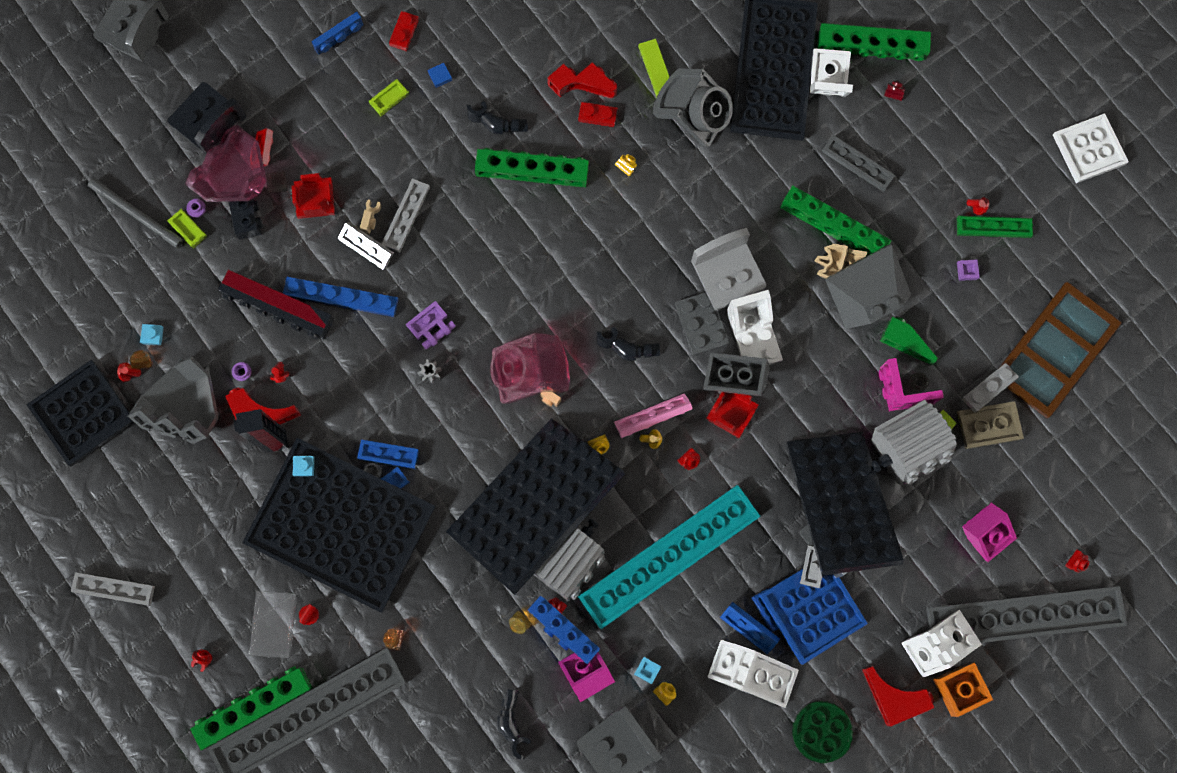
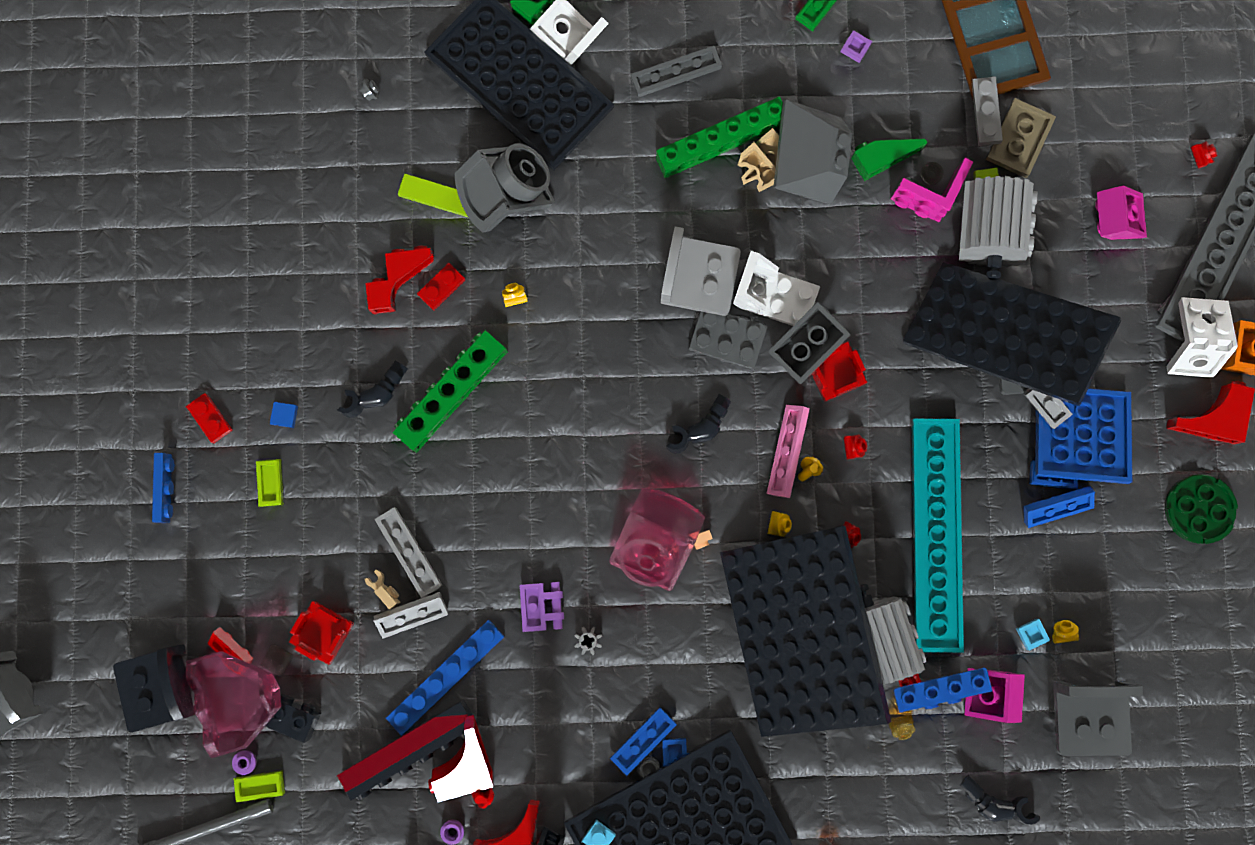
camera: 45 degrees left, 5 degrees up
(290, 352) = (466, 771): none -> arch
(625, 497) = (853, 534): none -> red plate
(753, 673) = (1105, 537): white bracket -> none

